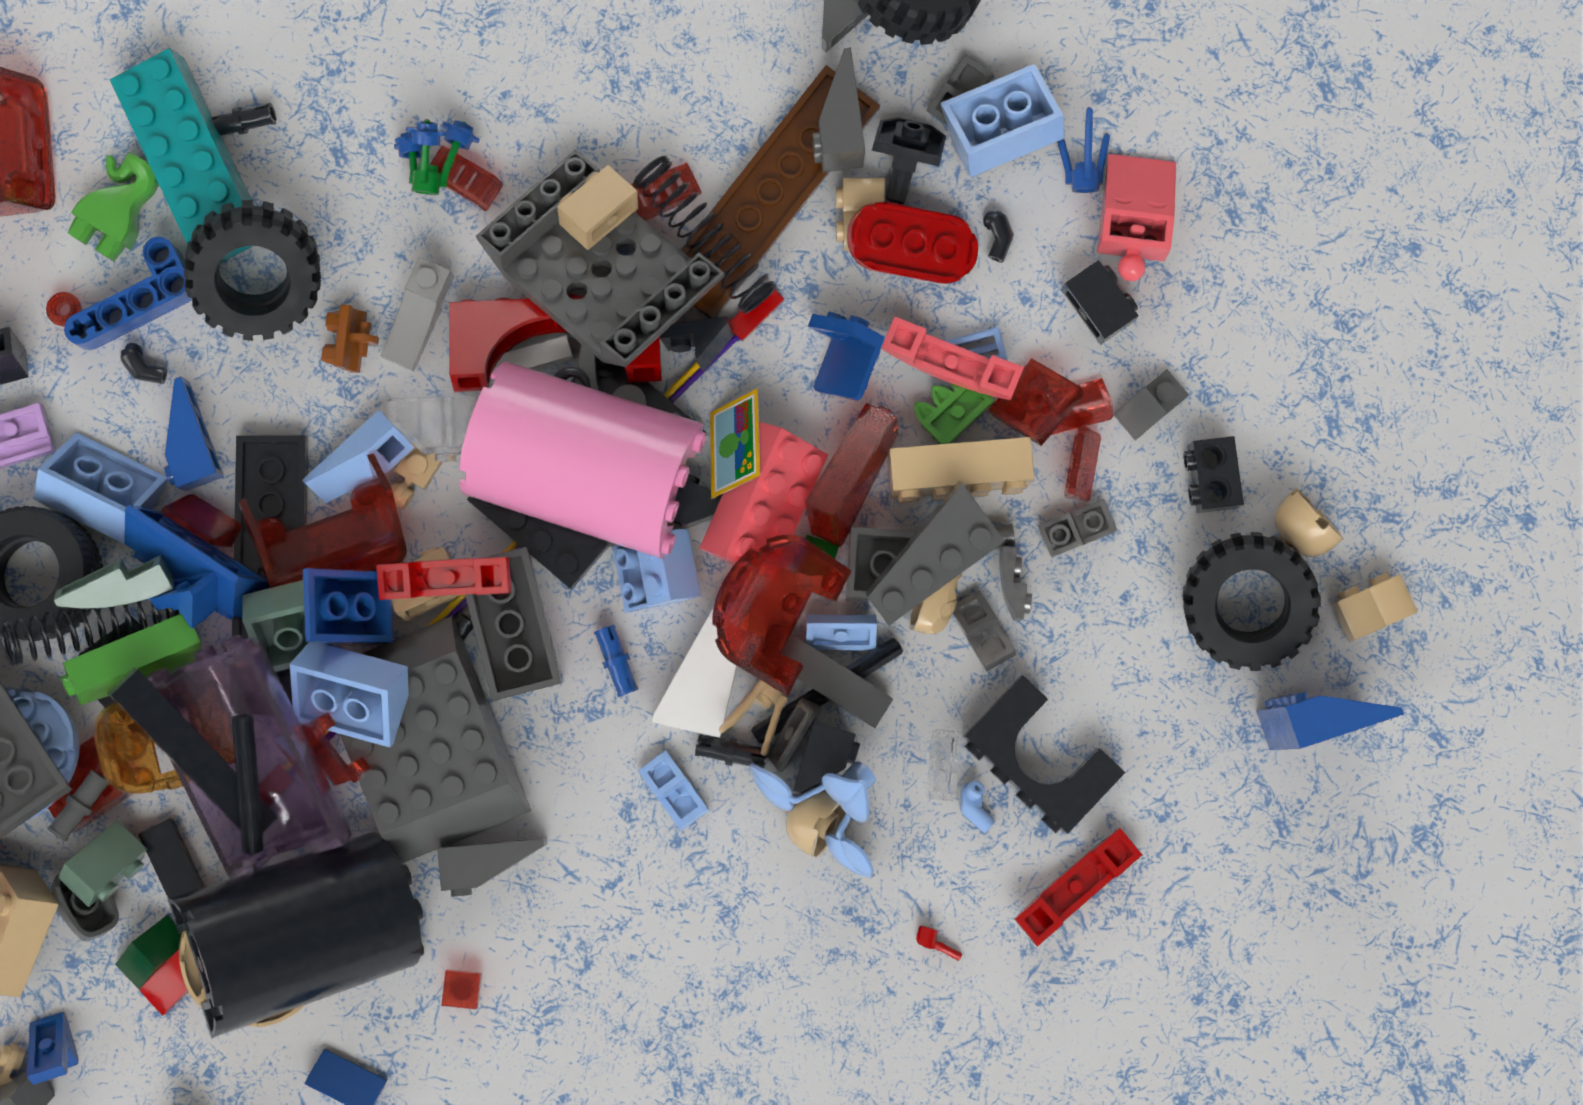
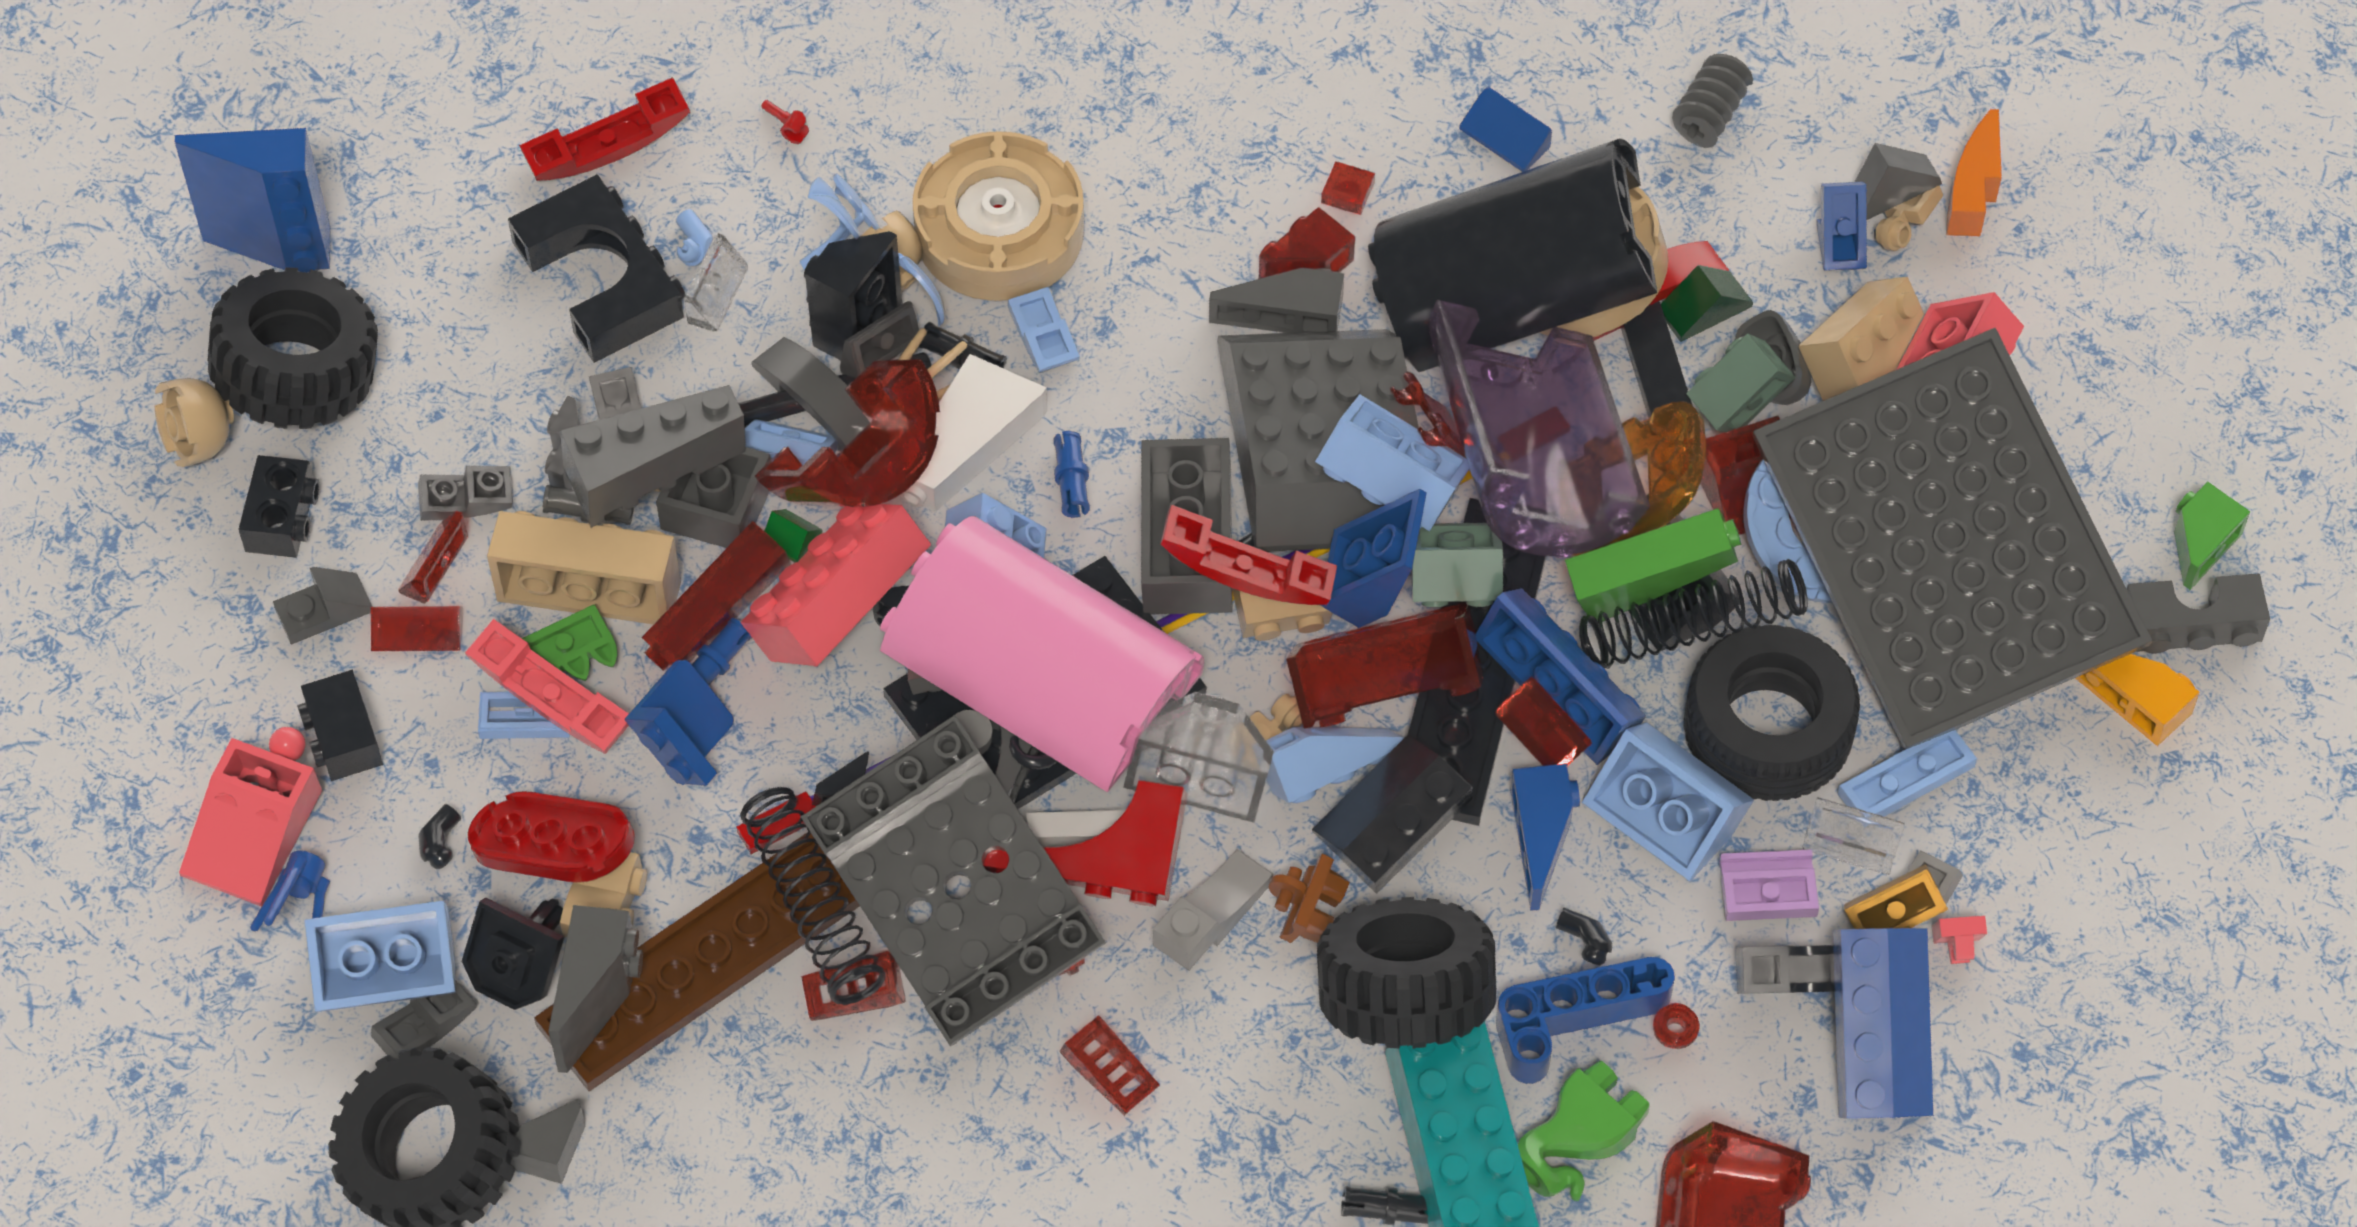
camera: 165 degrees left, 25 degrees down
(78, 805) = (1740, 437): dark grey pin -> none
(116, 585) = (1657, 640): slope -> none
(183, 745) = (1599, 439): black tile -> none
(191, 595) = (1573, 615): blue slope -> none
(247, 783) = (1542, 409): black axle -> none
(297, 415) = (1394, 812): none -> black slope
(416, 144) = (1139, 1084): plant -> none
(475, 916) = (1310, 244): none -> clear red slope
(597, 206) = (939, 953): tan brick -> none
(727, 915) = (999, 216): none -> tan piece
(734, 443) = (847, 653): sticker -> none
(839, 428) = (715, 657): none -> blue pin
(1038, 402) = (454, 618): clear red plate -> none
(1374, 607) = (148, 329): tan brick -> none

